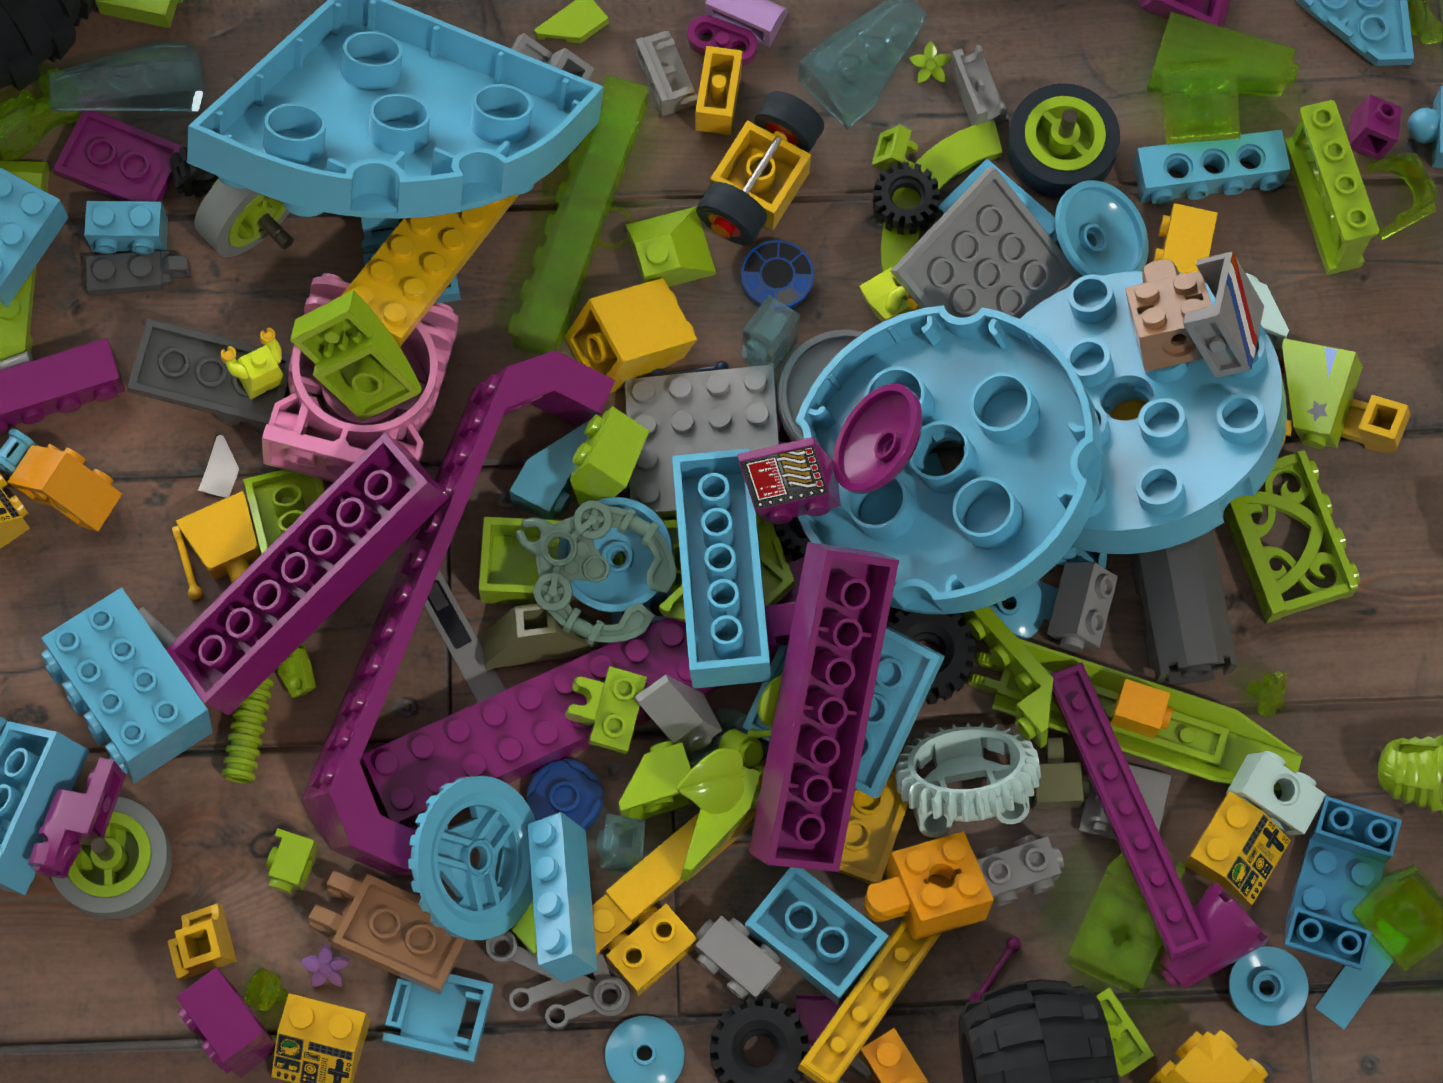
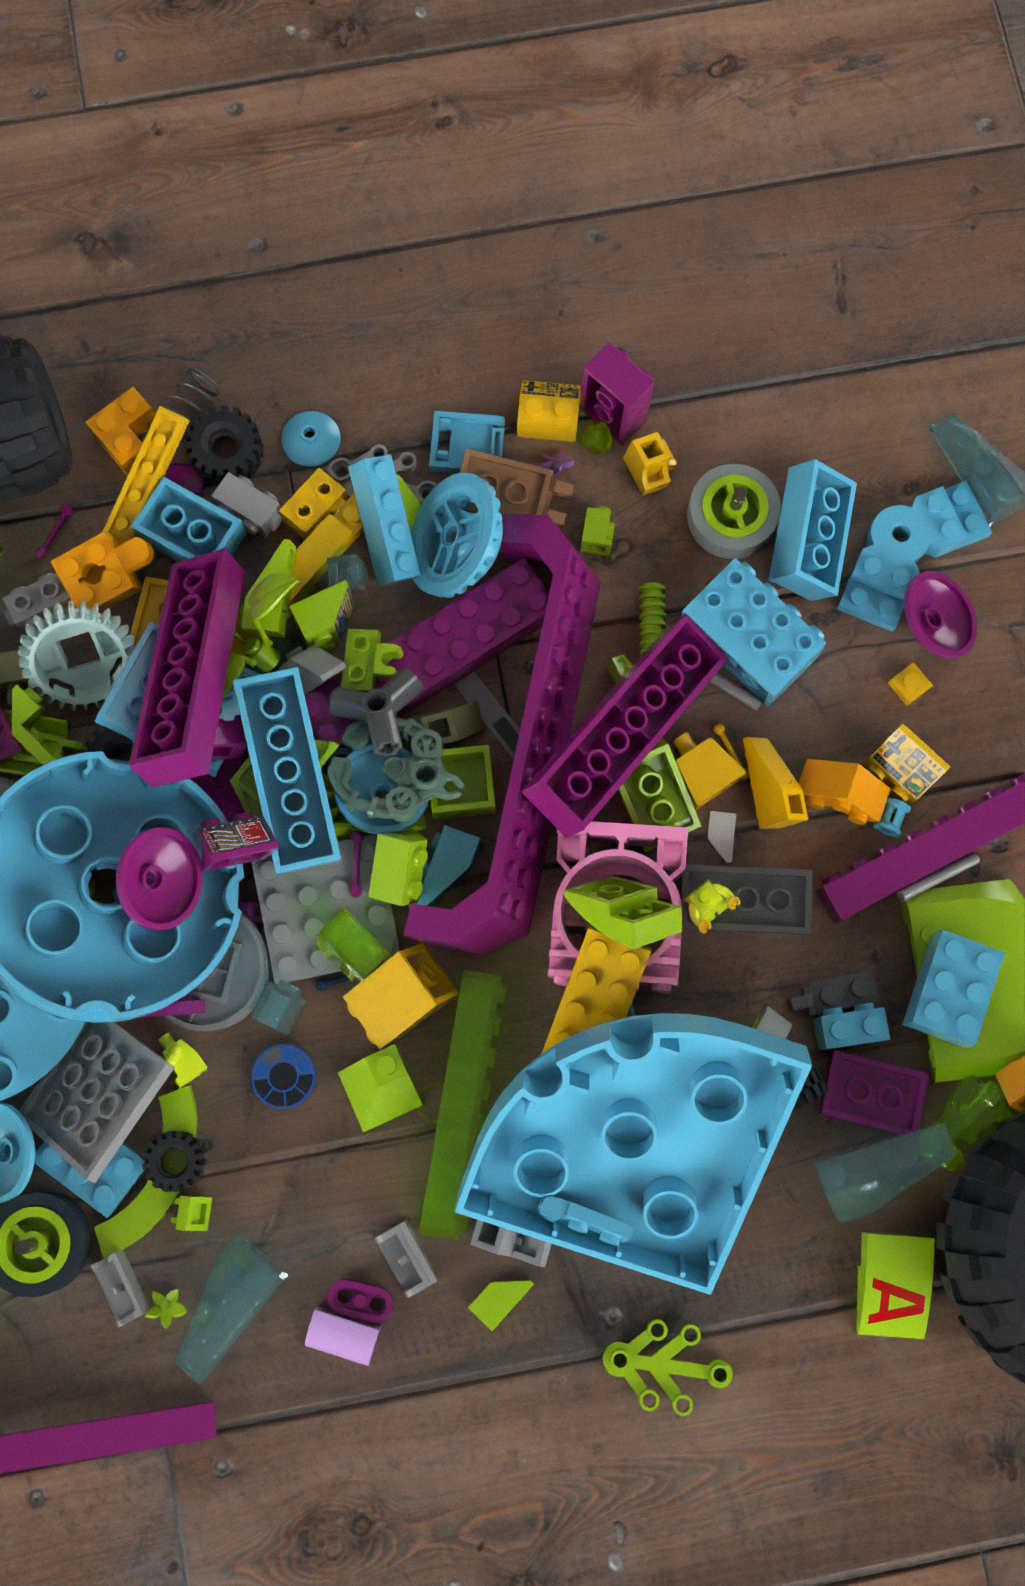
camera: 170 degrees right, 5 degrees up
(76, 820) = (764, 516): magenta plate -> none
(145, 502) = (775, 790): none -> yellow slope
(466, 63) = (585, 1219): none -> medium azure hinge
(568, 789) = (396, 609): blue tile -> none
(626, 649) = (381, 723): none -> dark grey piece
(665, 450) = (356, 891): none -> magenta hinge
(677, 386) = (351, 945): none -> clear neon green brick
(718, 90) = (354, 1243): yellow brick -> none
(762, 169) = (305, 1164): brick -> none

